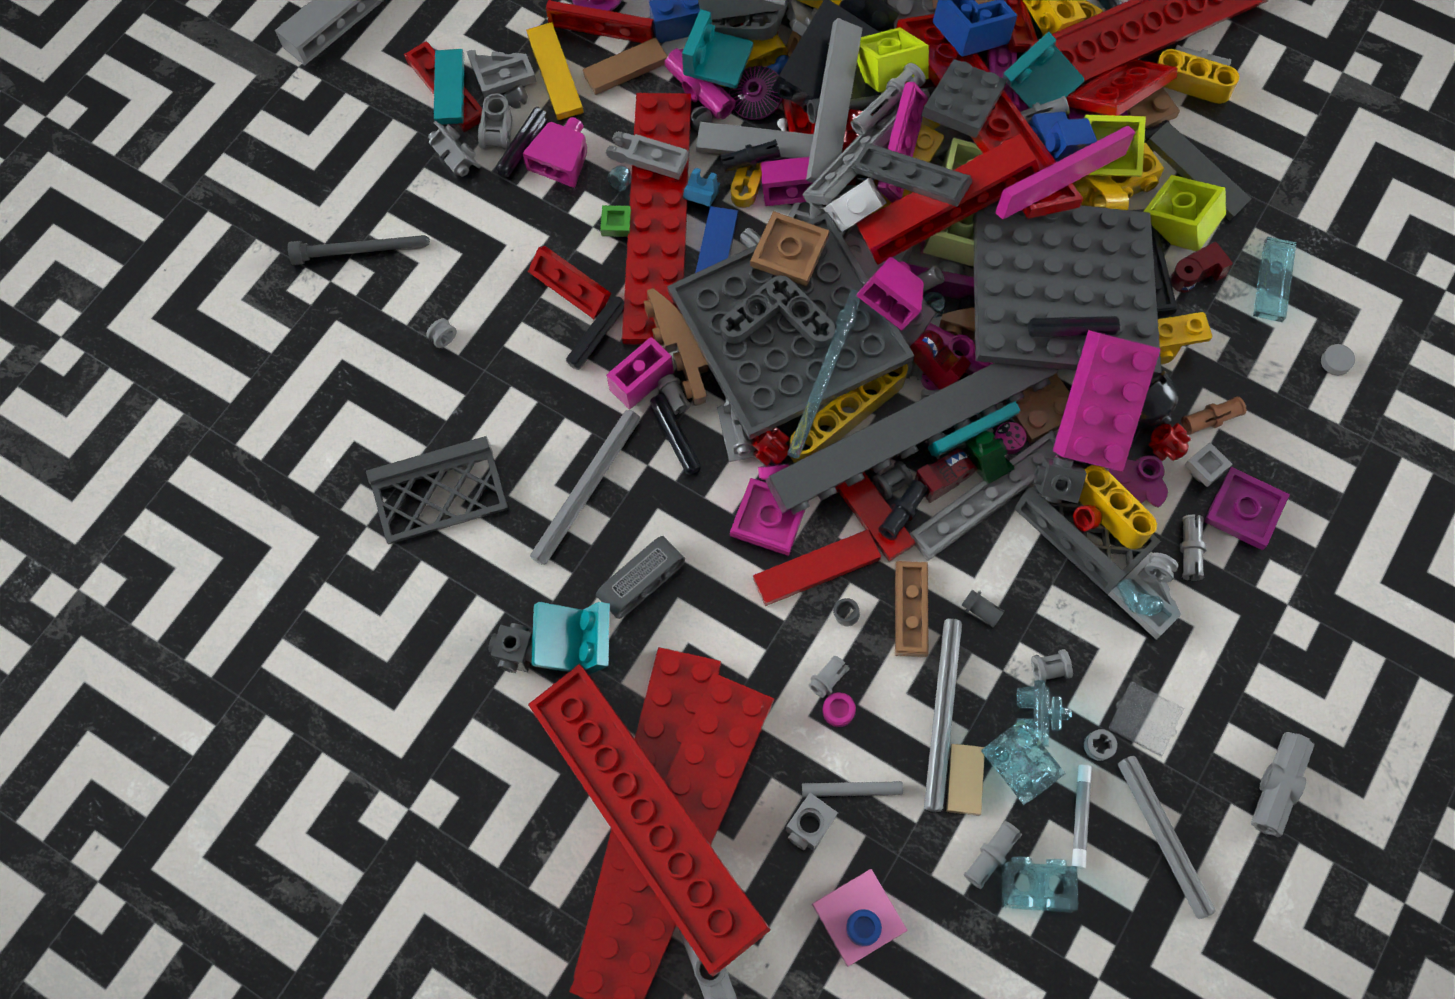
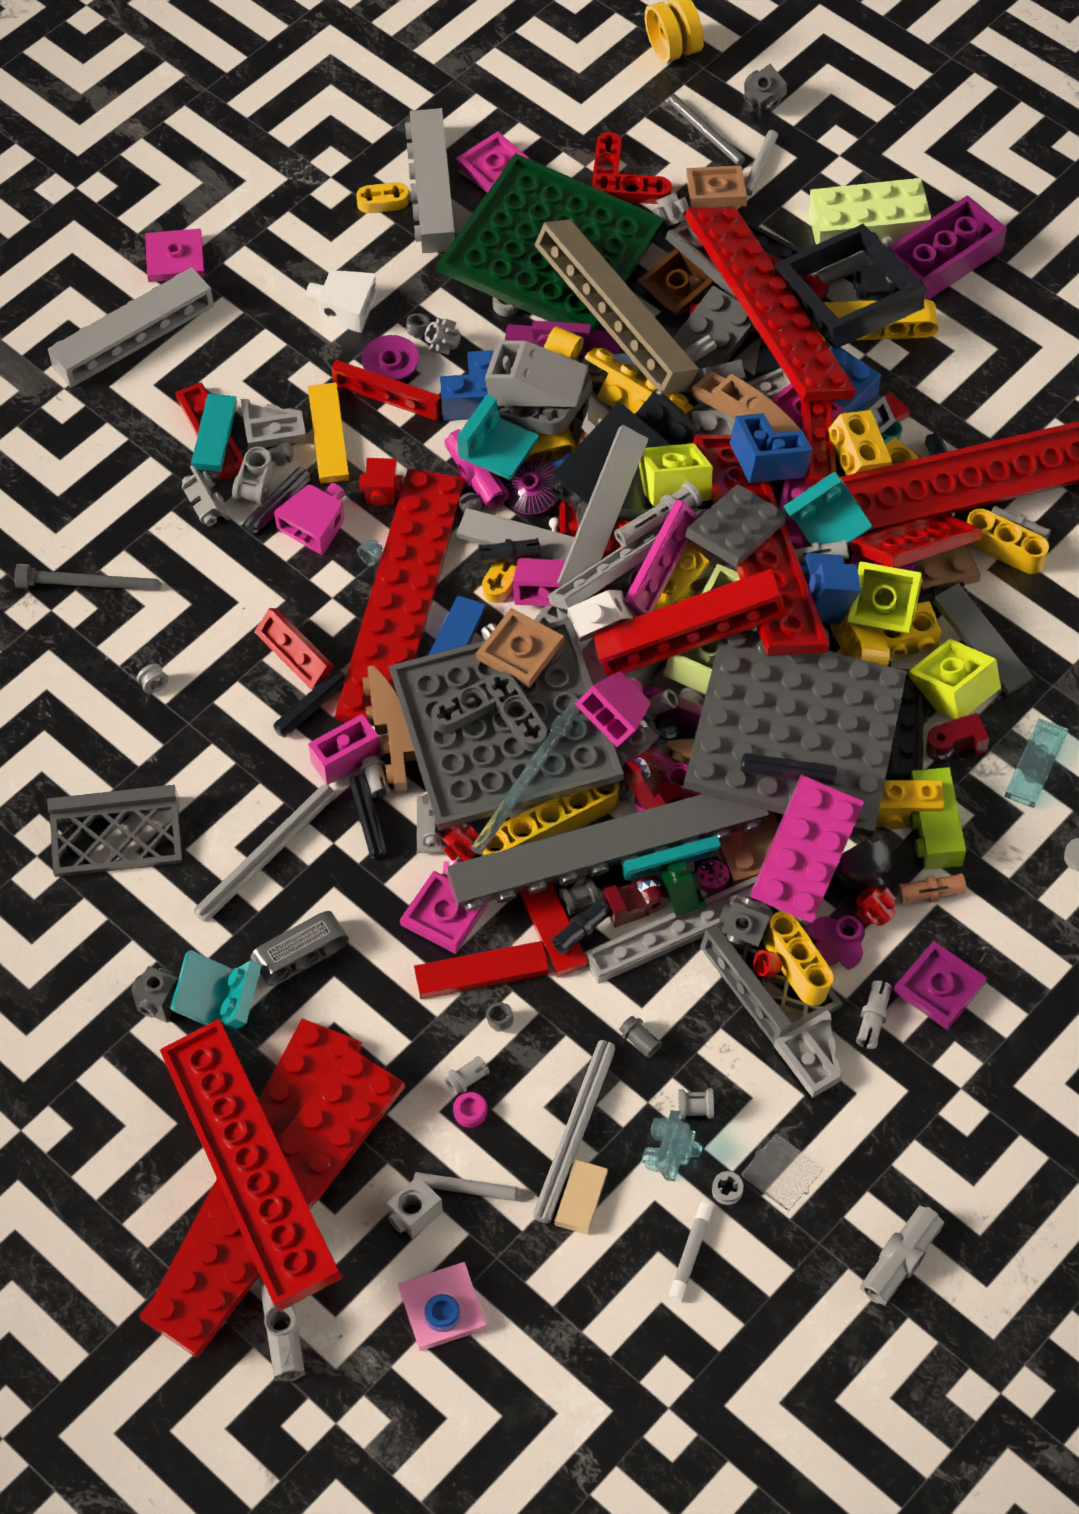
camera: 10 degrees right, 10 degrees down
(614, 109) = (380, 481): none -> red brick
(615, 221) = (355, 595): bright green plate -> none
(625, 66) = (404, 438): medium nougat tile -> none
(648, 154) = (404, 533): light grey hinge -> none
(701, 189) = (452, 577): dark azure tile -> none
(911, 609) = (568, 1026): medium nougat tile -> none
(912, 174) = (657, 592): dark grey tile -> none
(992, 854) = (589, 1270): light grey pin -> none
(1023, 762) = (639, 1185): clear light blue brick -> none
(1040, 895) = (624, 1315): clear light blue brick -> none
(1064, 172) = (814, 614): dark pink tile -> none
(1139, 602) = (799, 1054): clear light blue arm -> none
(1161, 567) = (829, 1024): light grey bush -> none
(1166, 837) = (770, 1286): light grey axle -> none
(1208, 464) = (909, 934): light grey tile -> none
(1209, 363) = (939, 833): none -> lime brick

